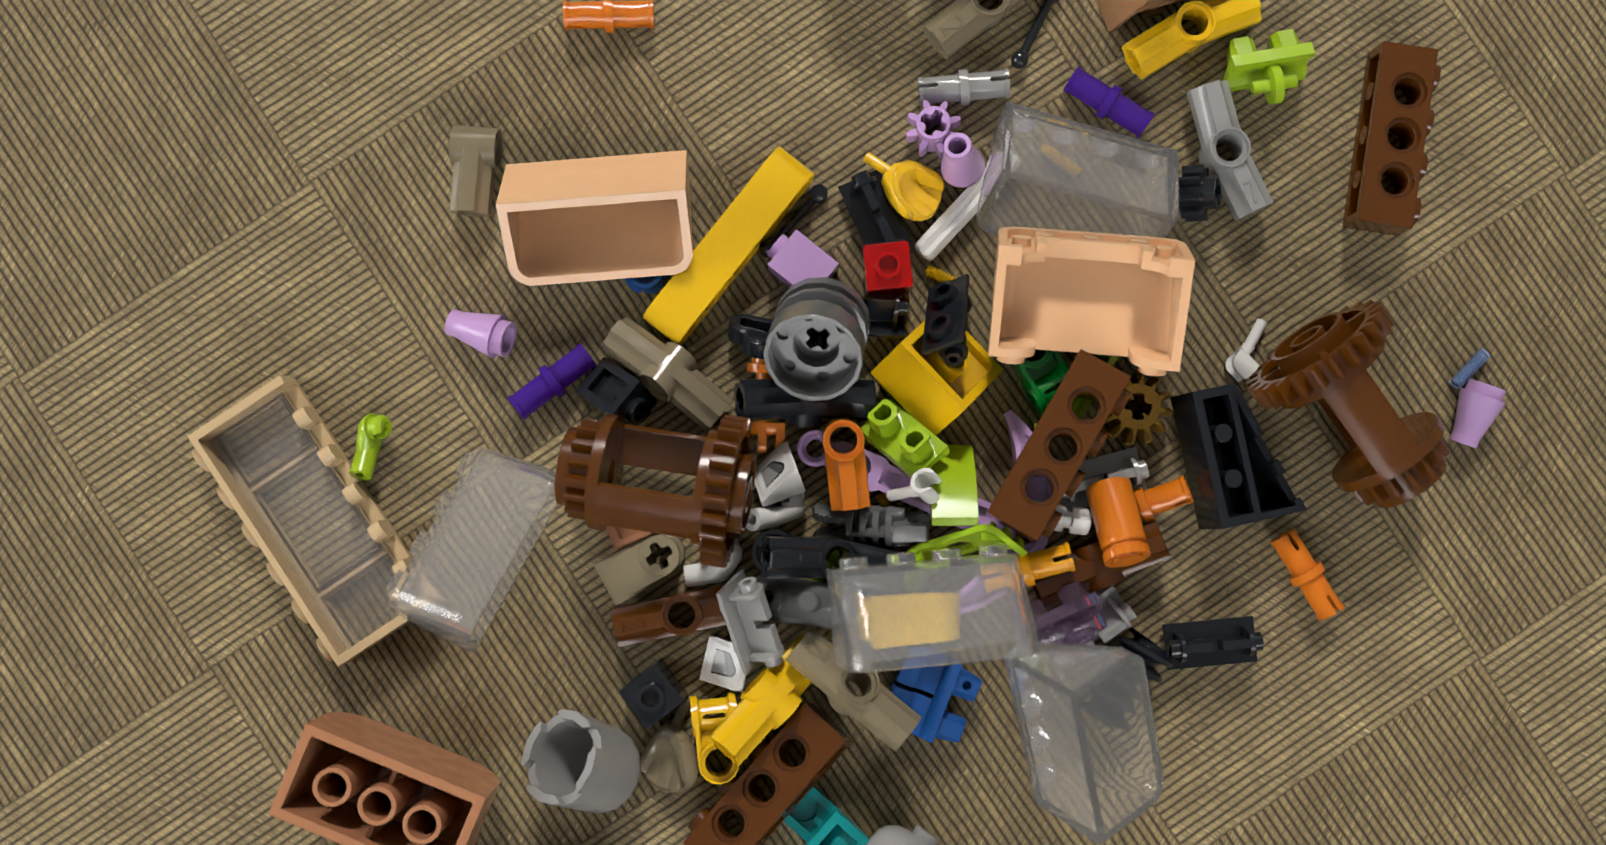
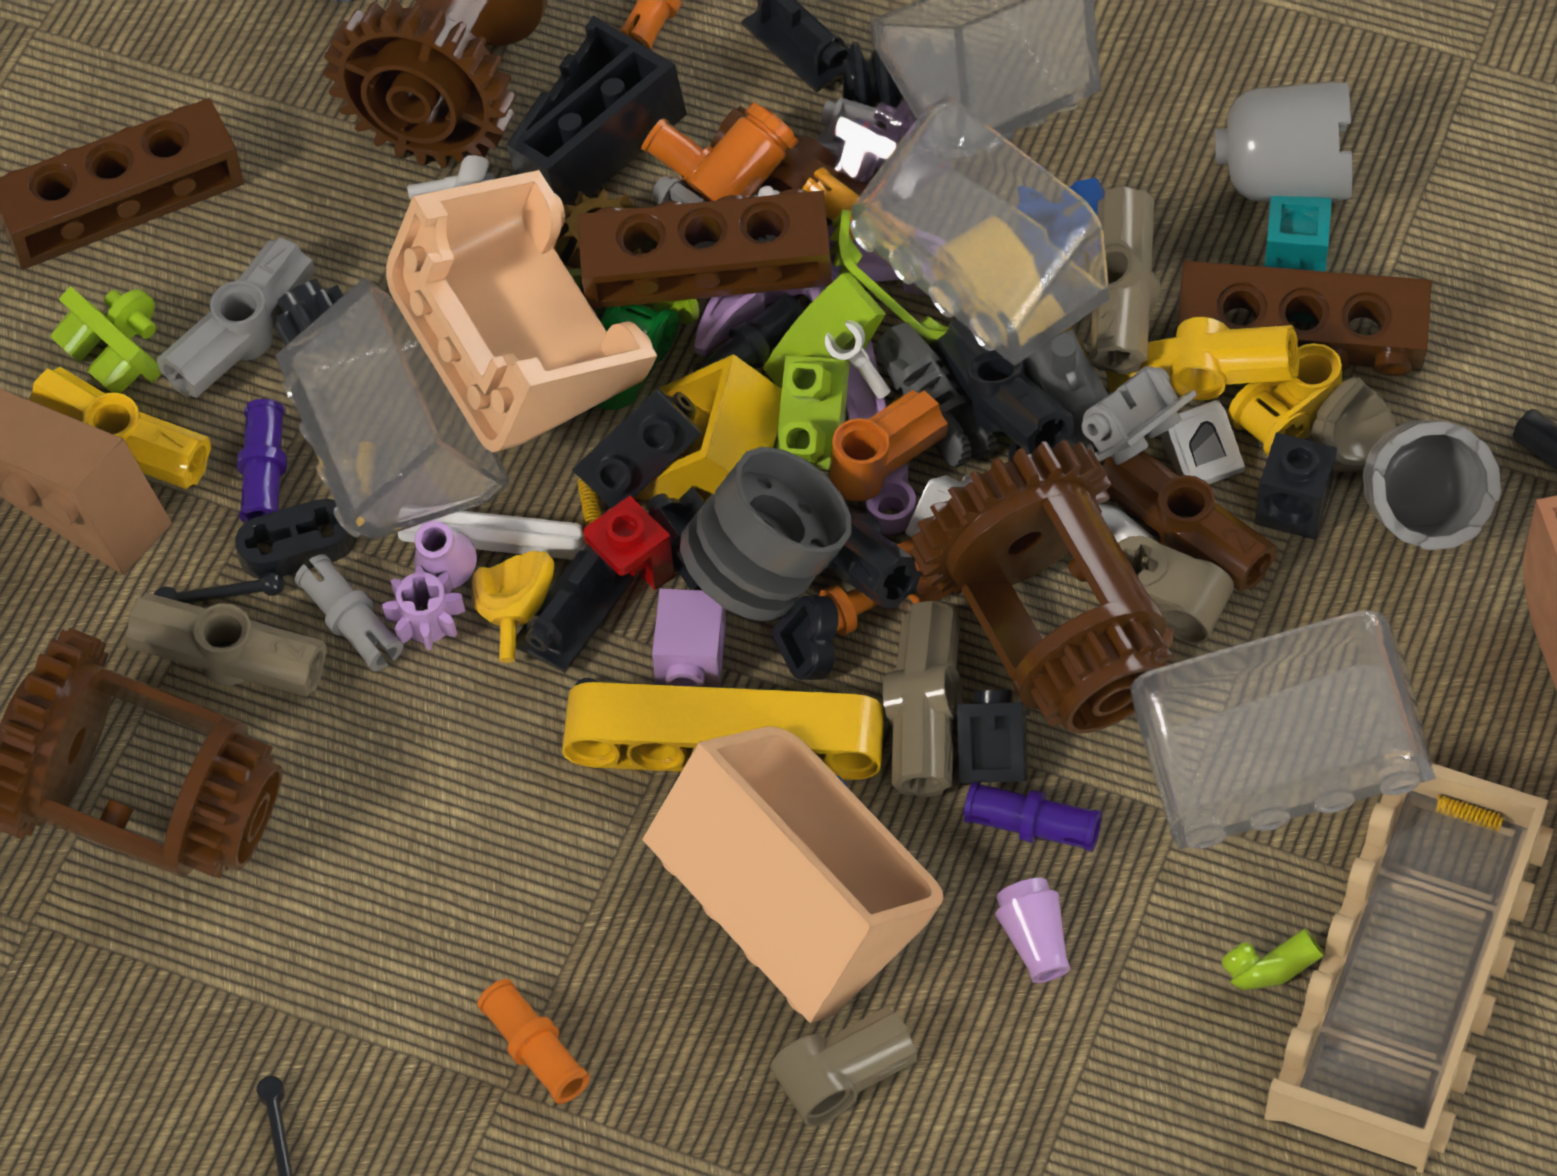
camera: 120 degrees left, 30 degrees down
(373, 626) = (1466, 810): none -> yellow leg
(990, 444) = (757, 339): none -> black pin
(1053, 91) = (293, 537): none -> black beam

